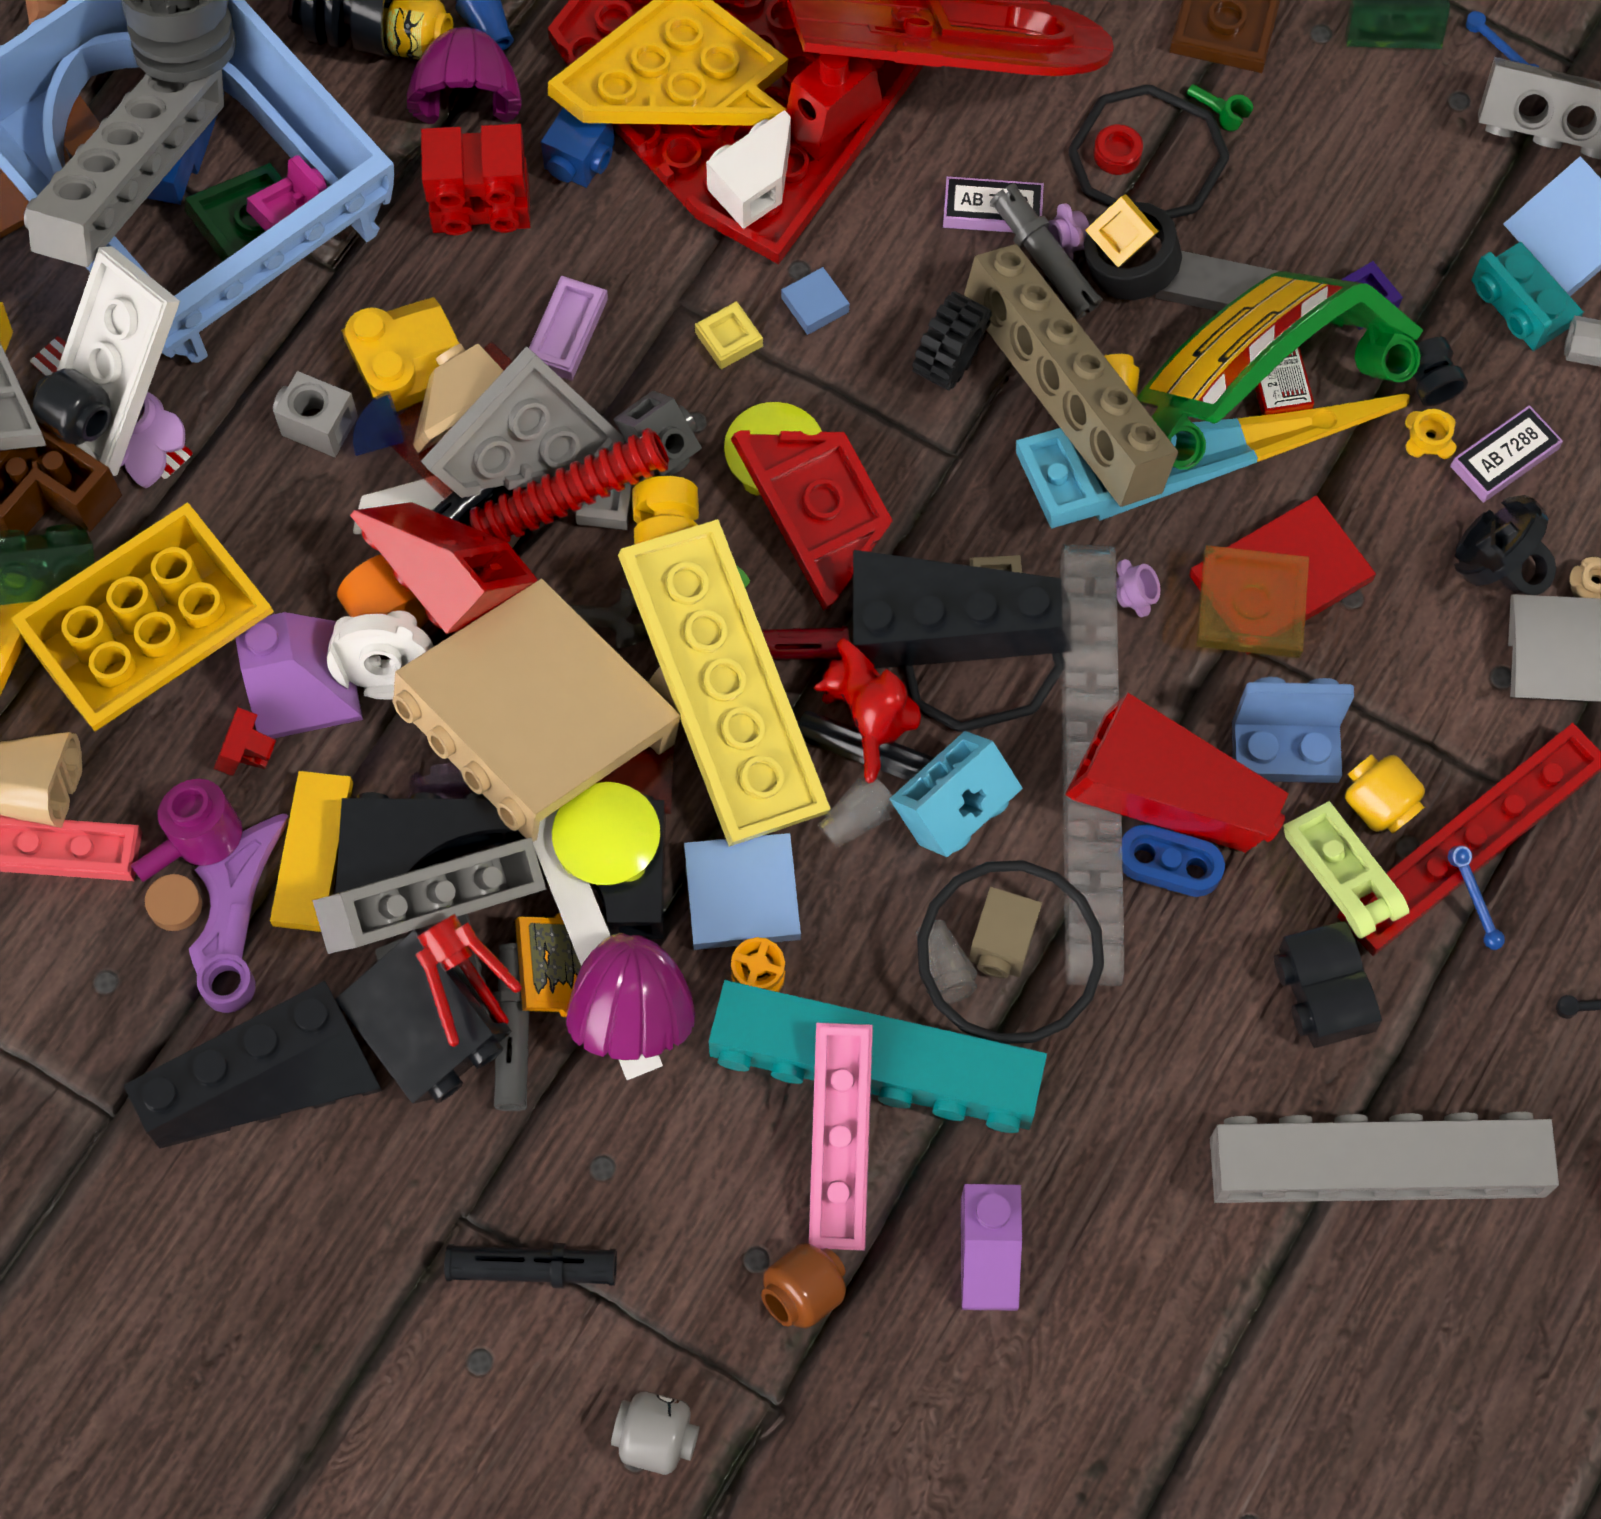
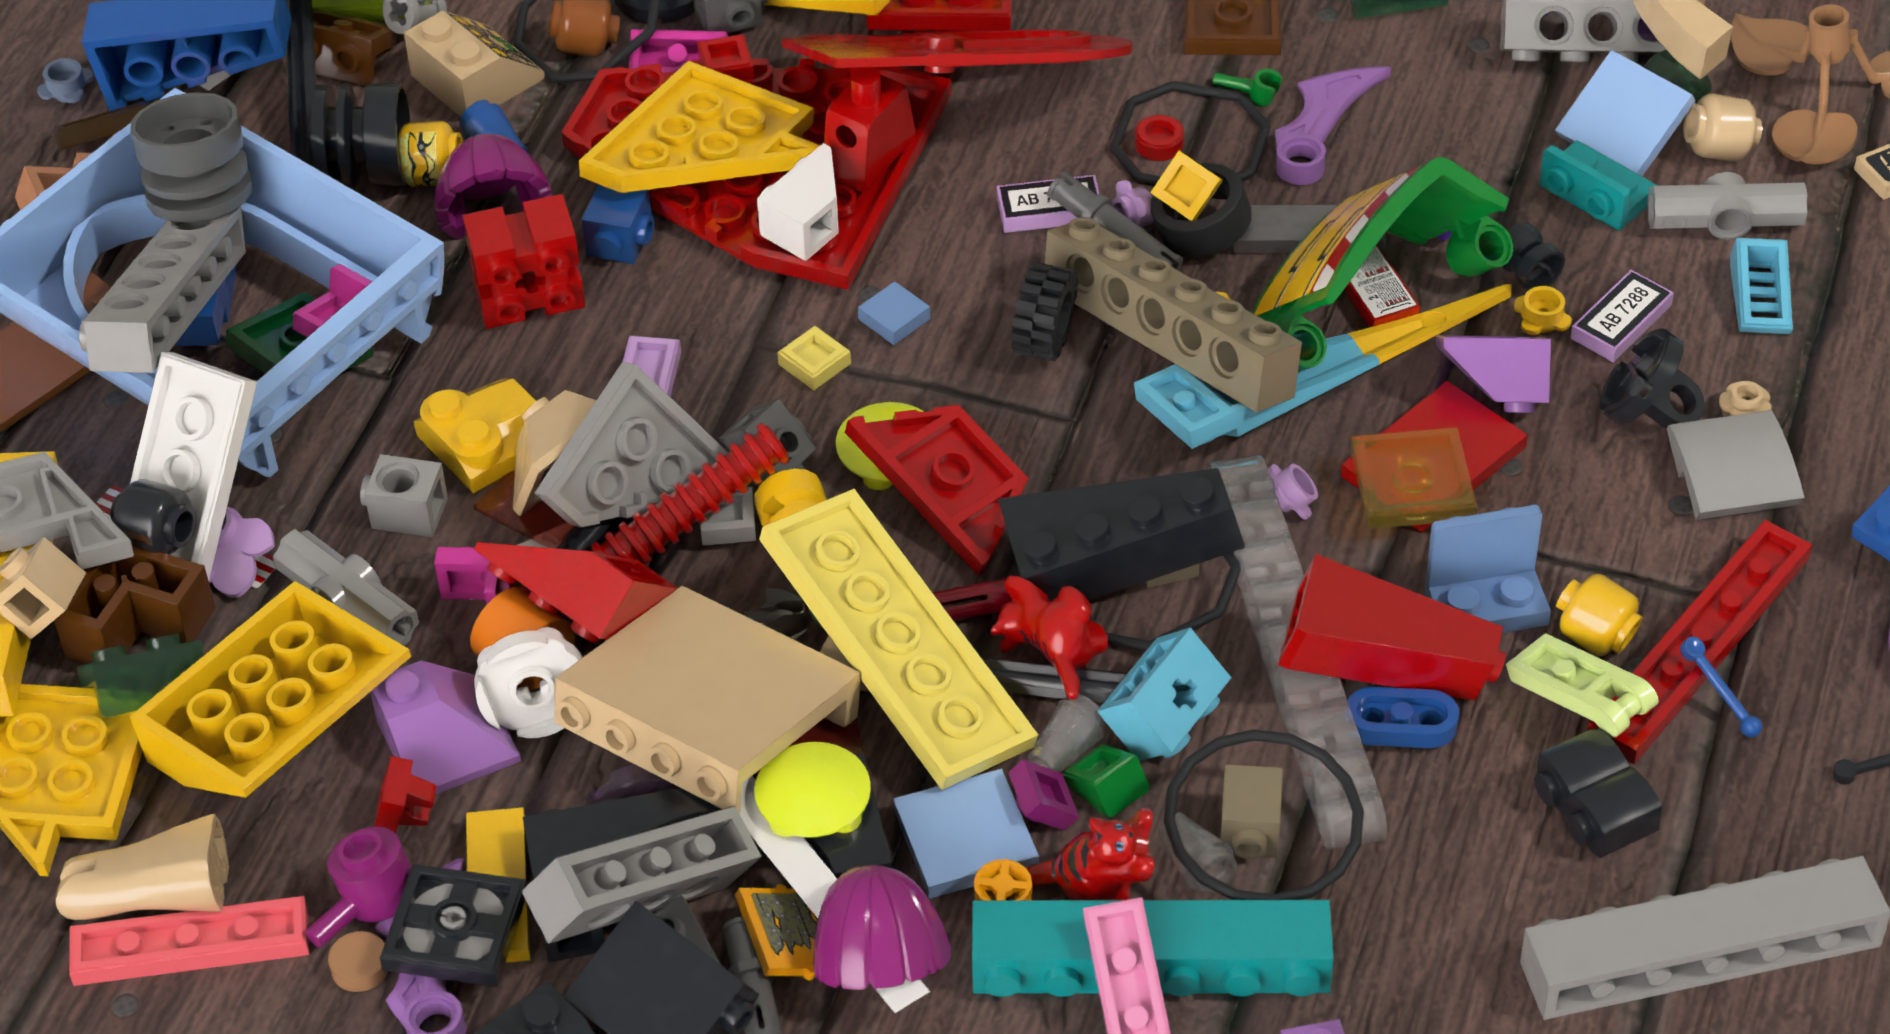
camera: 10 degrees left, 20 degrees down
(240, 505) = (346, 583): none -> light grey piece
(259, 895) = (454, 925): none -> black piece
(340, 504) = (464, 575): none -> dark pink bracket
(377, 426) = (473, 494): clear blue tile -> none
(449, 946) = (677, 902): red plant -> none
(820, 871) = (1043, 795): none -> magenta plate
(850, 961) = (1102, 860): none -> red animal
(885, 862) = (1108, 779): none -> green slope
(1291, 138) = (1325, 102): none -> medium lavender piece
(1371, 489) = (1503, 367): none -> medium lavender slope

